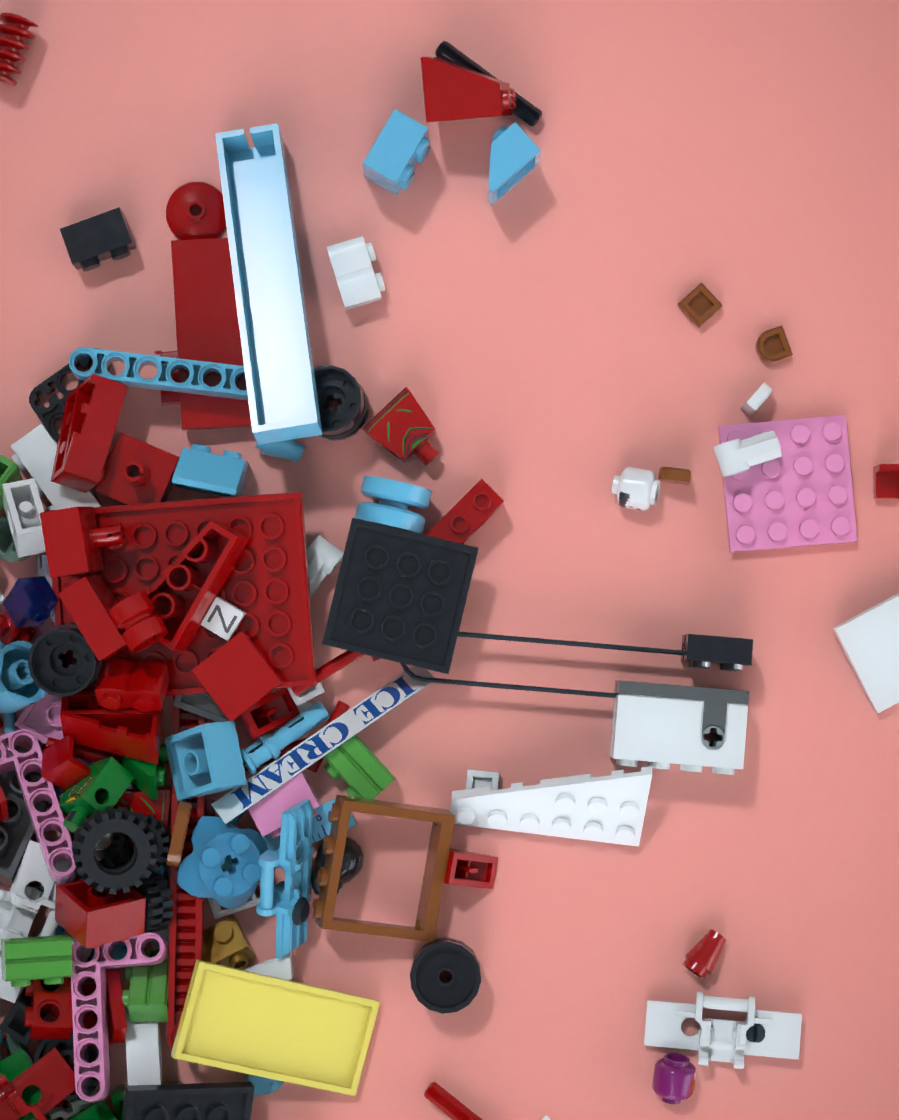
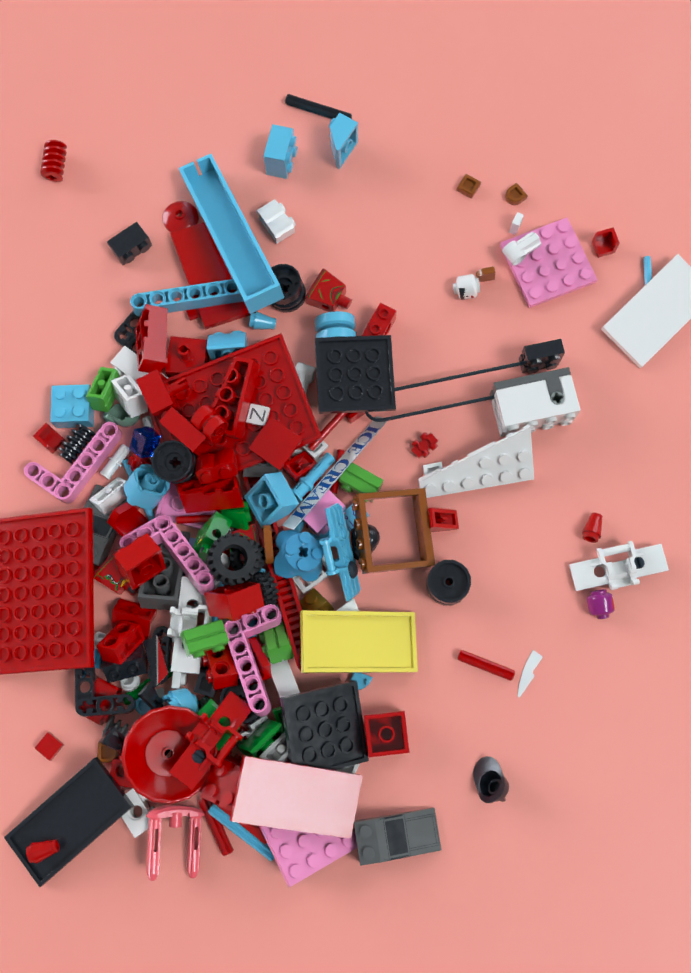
camera: 15 degrees left, 10 degrees down
(60, 766) = (188, 526): red panel -> none
(462, 93) = (307, 110): red slope -> none
(475, 739) = (421, 448): none -> red piece

